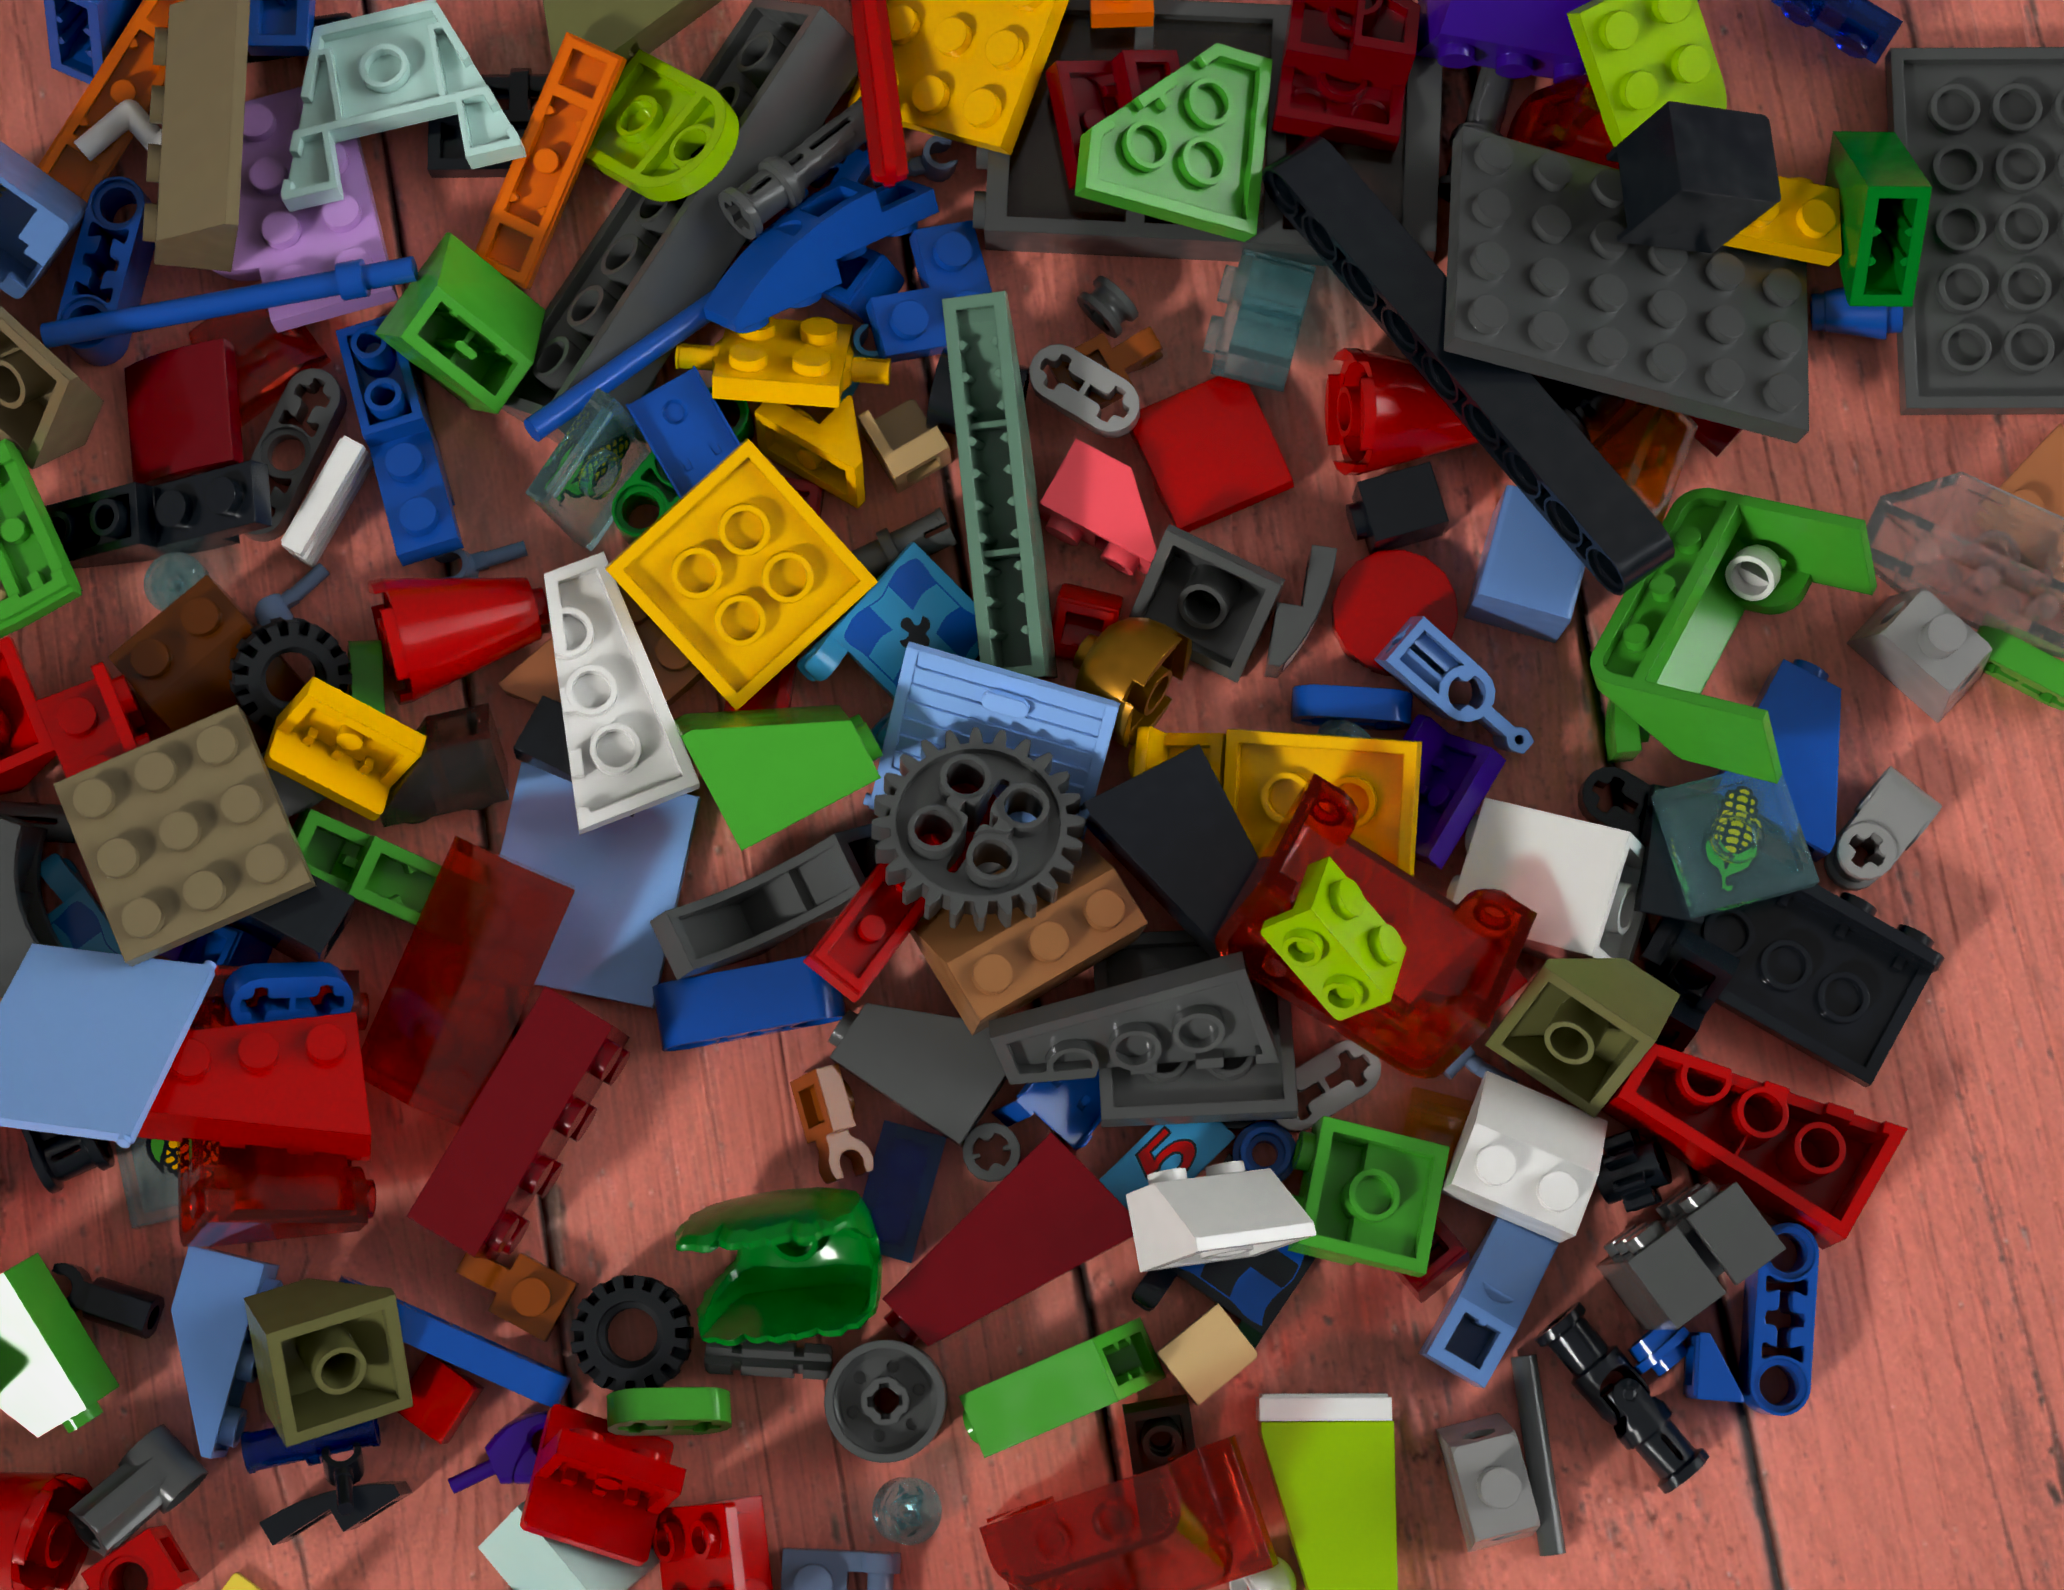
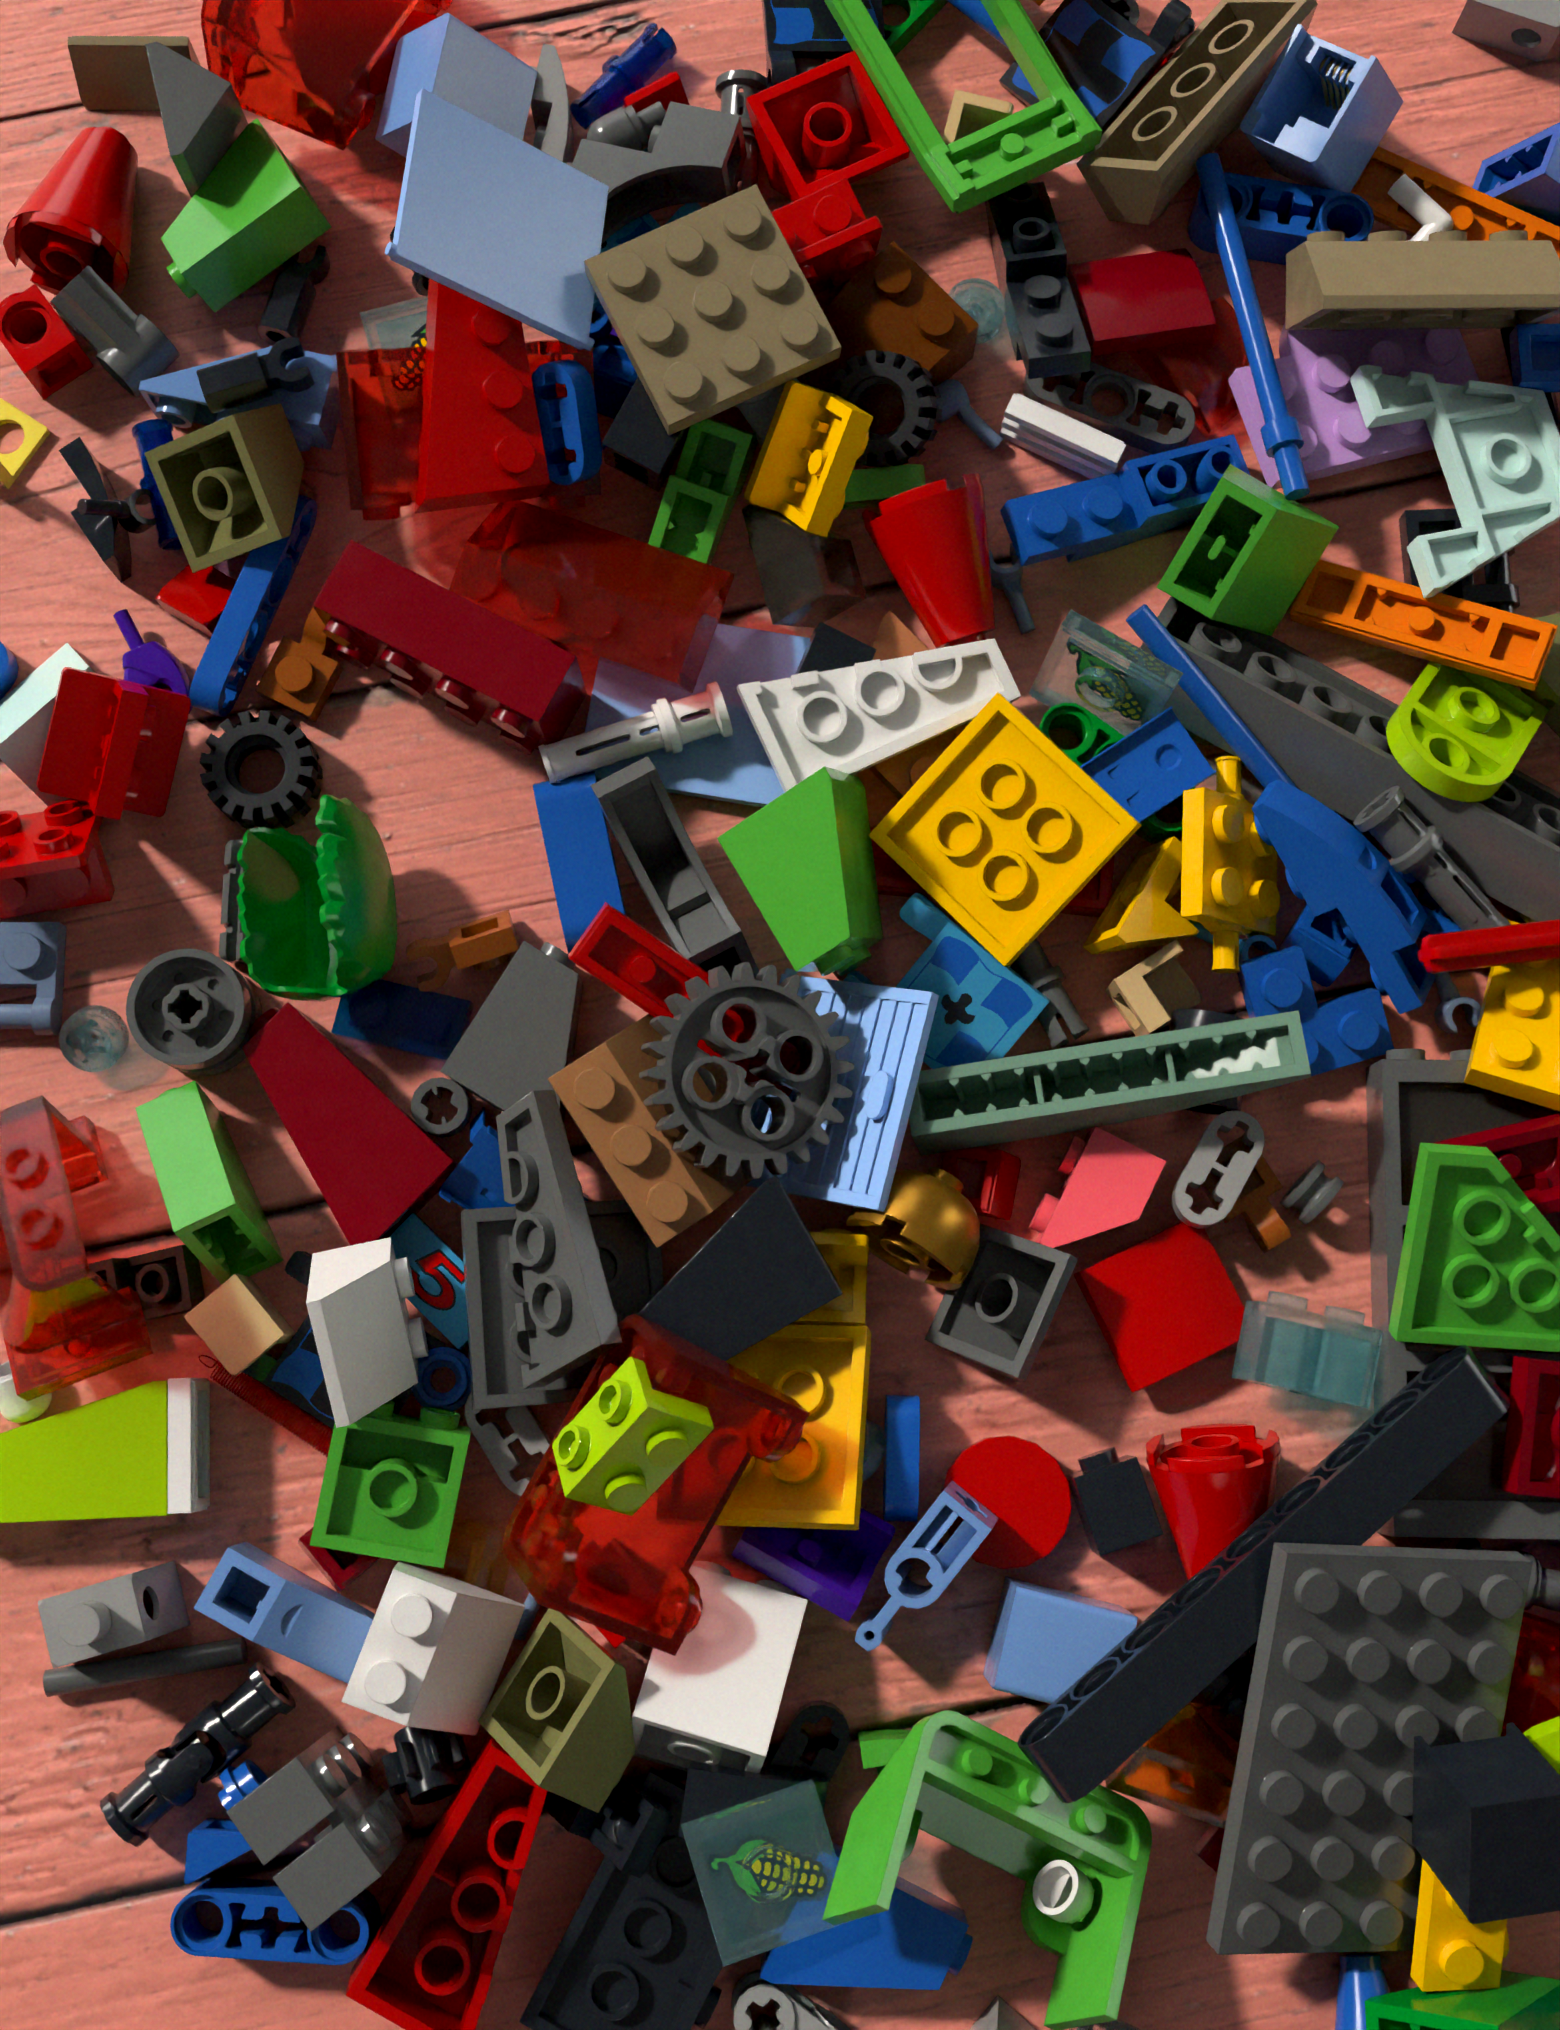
camera: 85 degrees right, 0 degrees up
(210, 1330) = (254, 376): none -> black bar
(603, 909) = (666, 716): none -> white pin
(669, 1411) = (185, 807): bright green beam -> none
(1277, 1350) = (300, 1418): none -> red piece
(1295, 622) = (984, 1395): dark grey slope -> none

